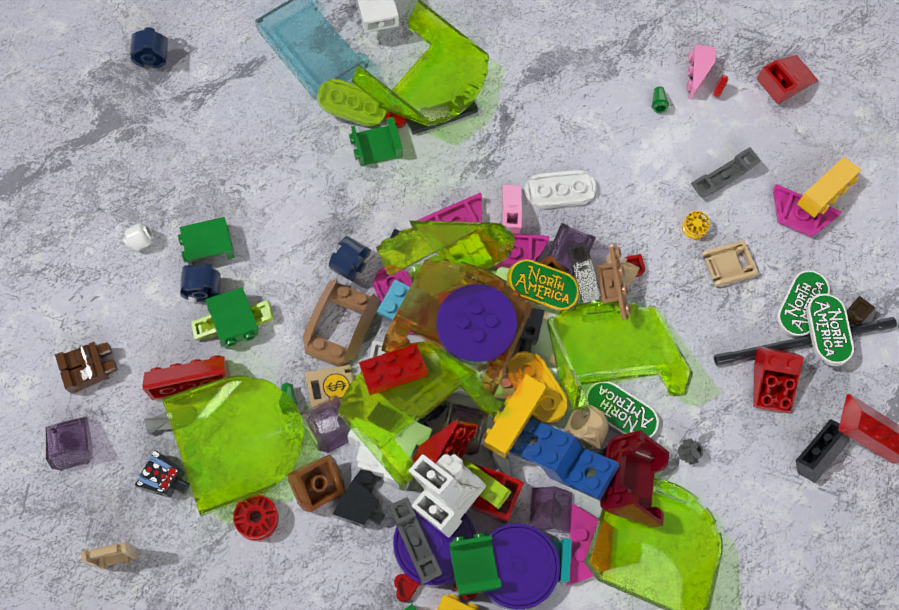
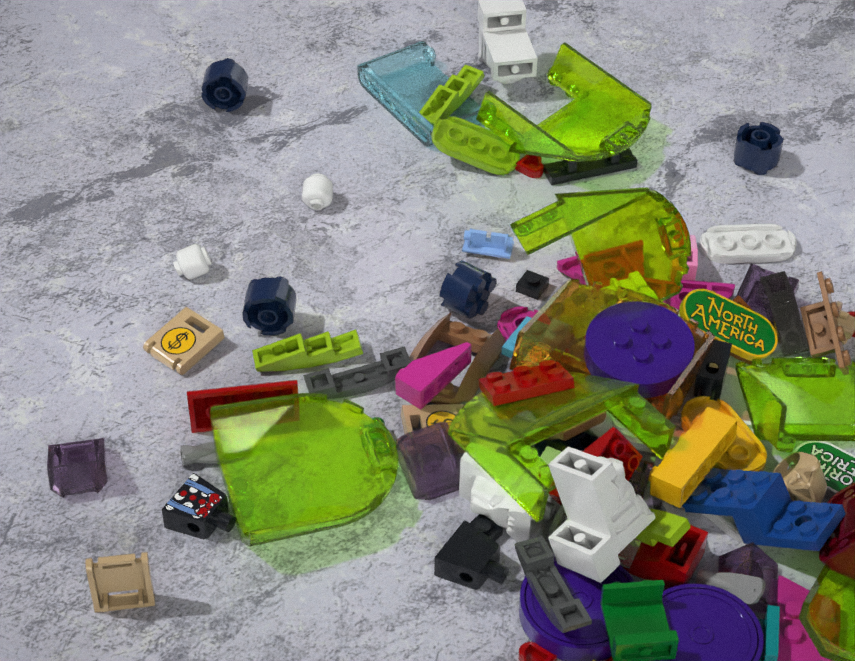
camera: 10 degrees right, 25 degrees down
(85, 366) = (110, 387): reddish brown hips -> none
(135, 319) = (180, 344): none -> tan container
(205, 240) = (288, 261): green panel -> none
(230, 157) = (318, 191): none -> white head
(232, 317) = (308, 344): green panel -> none
(256, 530) = (325, 562): red wheel -> none
(271, 344) = (358, 379): none -> dark grey slope
(316, 483) = (410, 524): dark orange slope -> none
(322, 349) = (430, 374): none -> dark pink slope
(331, 47) = (451, 95): none -> lime slope
(364, 204) = (498, 245): none -> light blue hinge
(376, 144) = (506, 190): green panel -> none
(548, 526) = (743, 586): none -> light grey piece
(570, 93) = (758, 147): none -> dark blue brick

